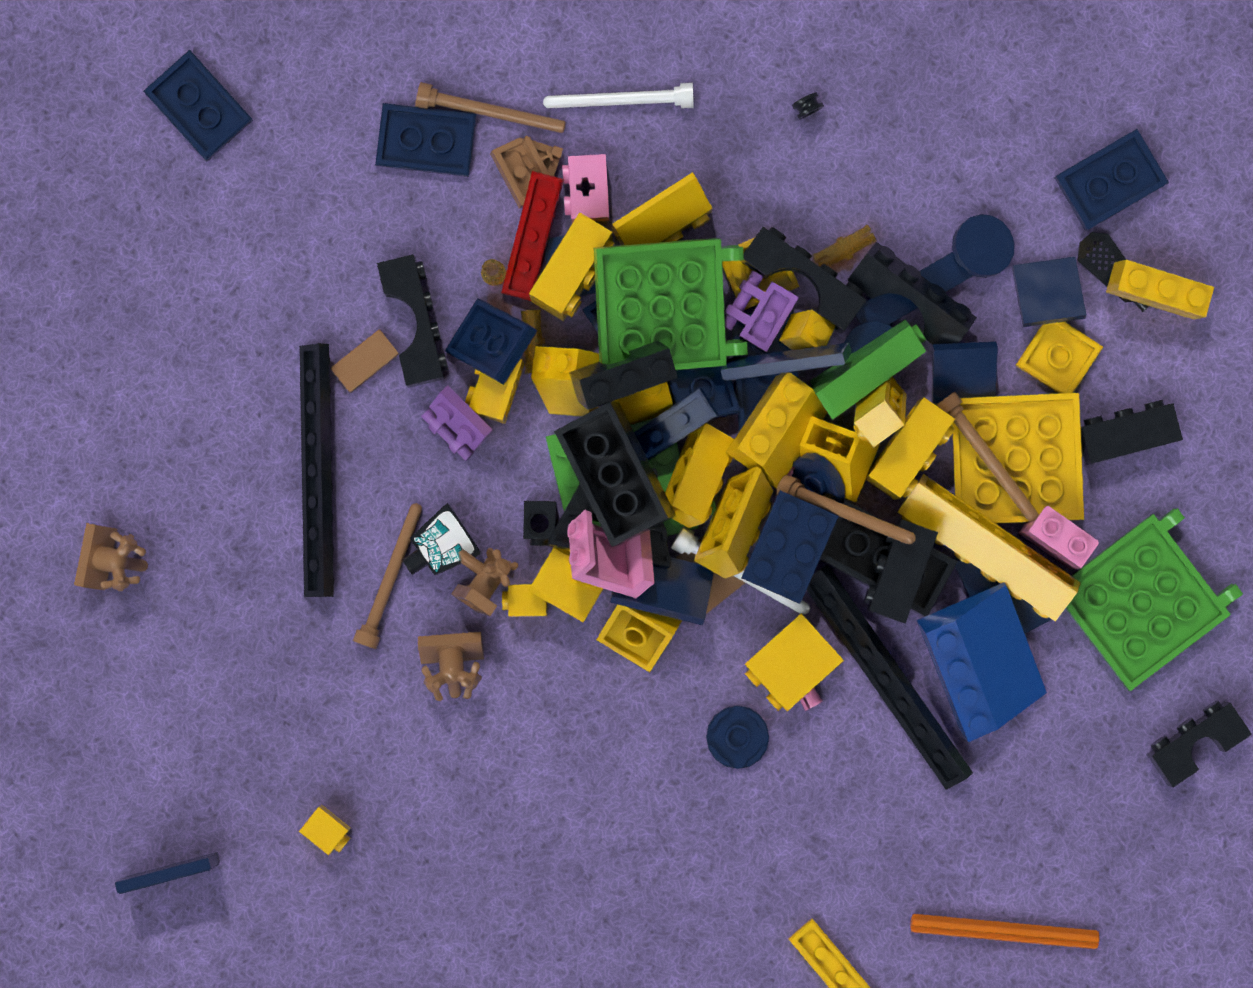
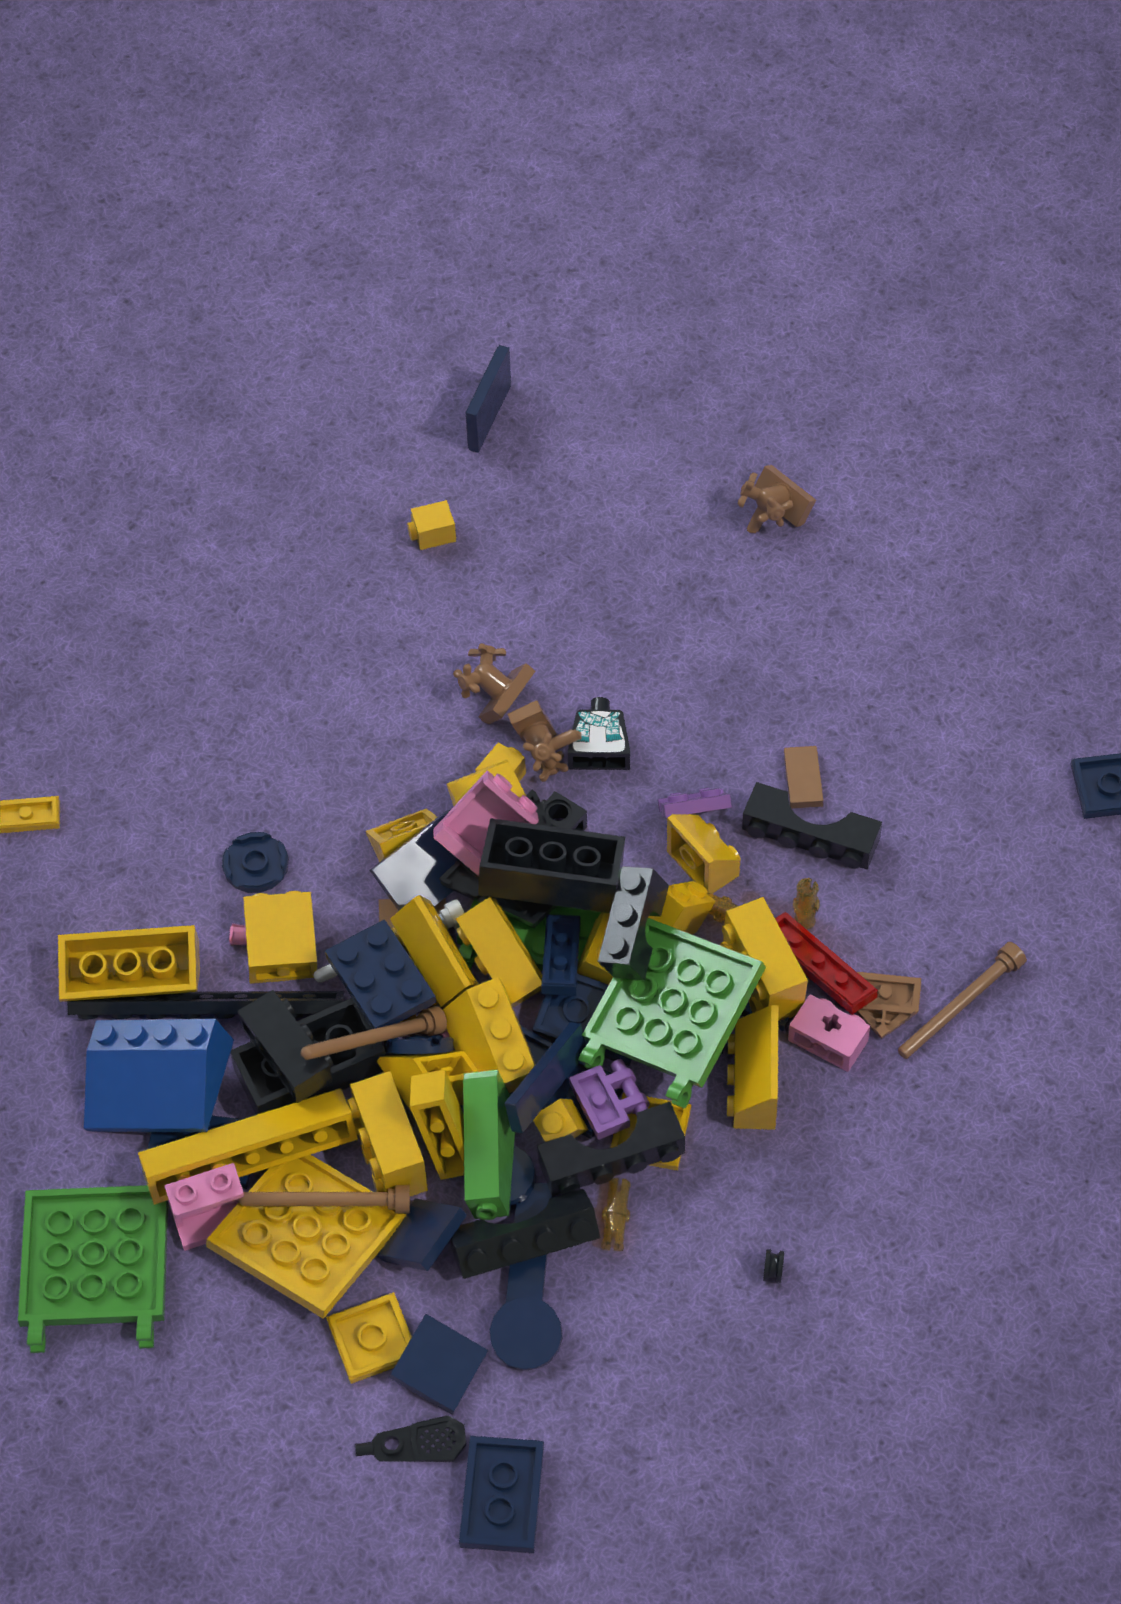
camera: 125 degrees right, 30 degrees down
(316, 470) = (745, 691): black plate -> none
(368, 633) = (566, 644): medium nougat piece -> none
(425, 140) = (969, 936): dark blue tile -> none
(491, 341) = (746, 863): dark blue tile -> none
(680, 95) = (861, 1166): white piece -> none
(904, 756) = (128, 963): none -> yellow slope
(1129, 432) = (252, 1346): black brick -> none
(1160, 289) = (362, 1458): yellow brick -> none

